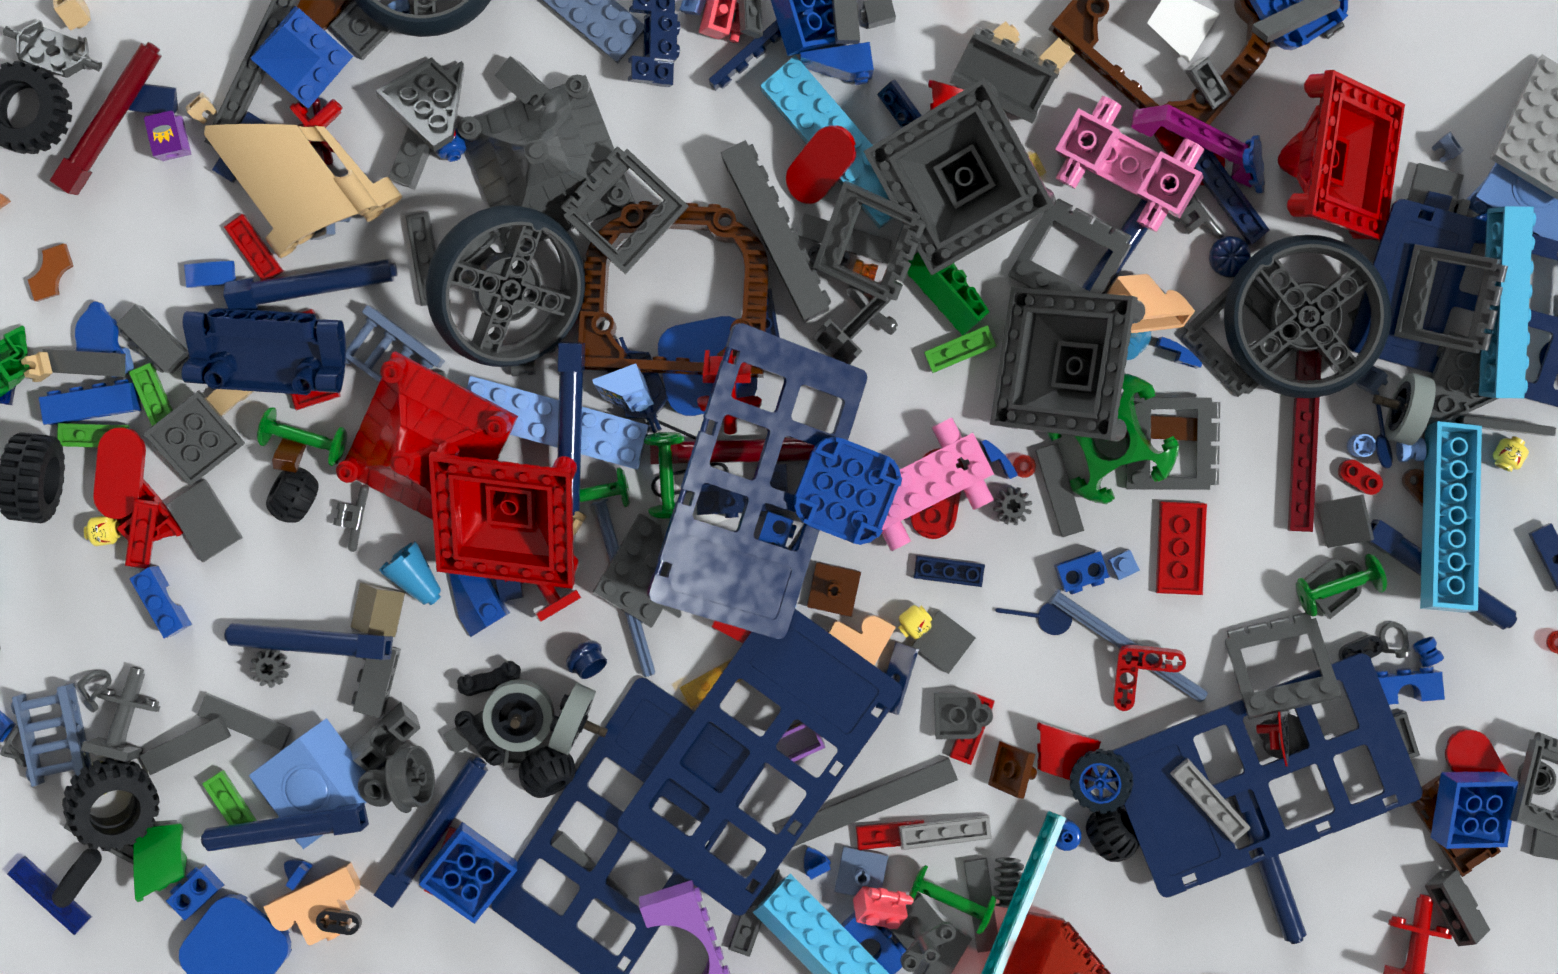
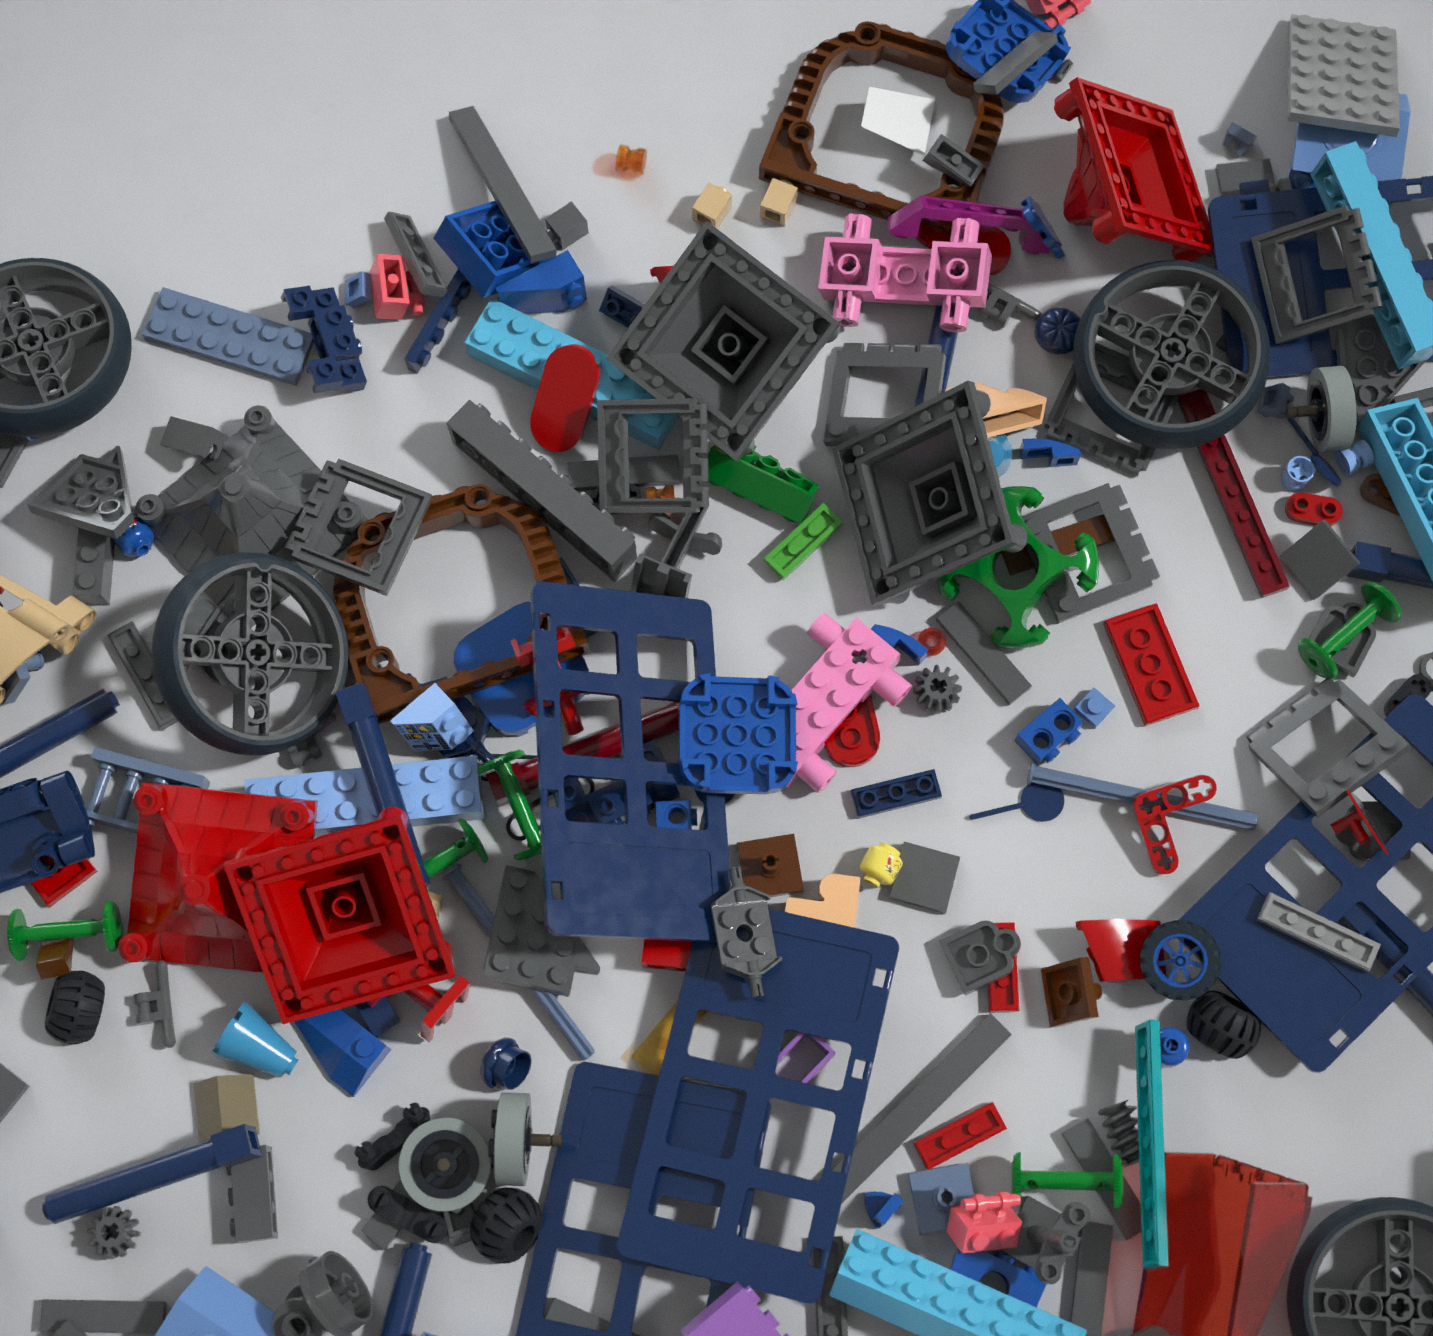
camera: 20 degrees left, 15 degrees down
(372, 746) = (296, 1241): dark grey arch -> none
(796, 658) = (746, 909): none -> dark grey plate
(900, 664) = (886, 919): dark blue tile -> none
(945, 832) = (1023, 1104): light grey tile -> none
(1016, 73) = (750, 225): dark grey panel -> none
(1230, 198) = (1033, 271): dark blue plate -> none

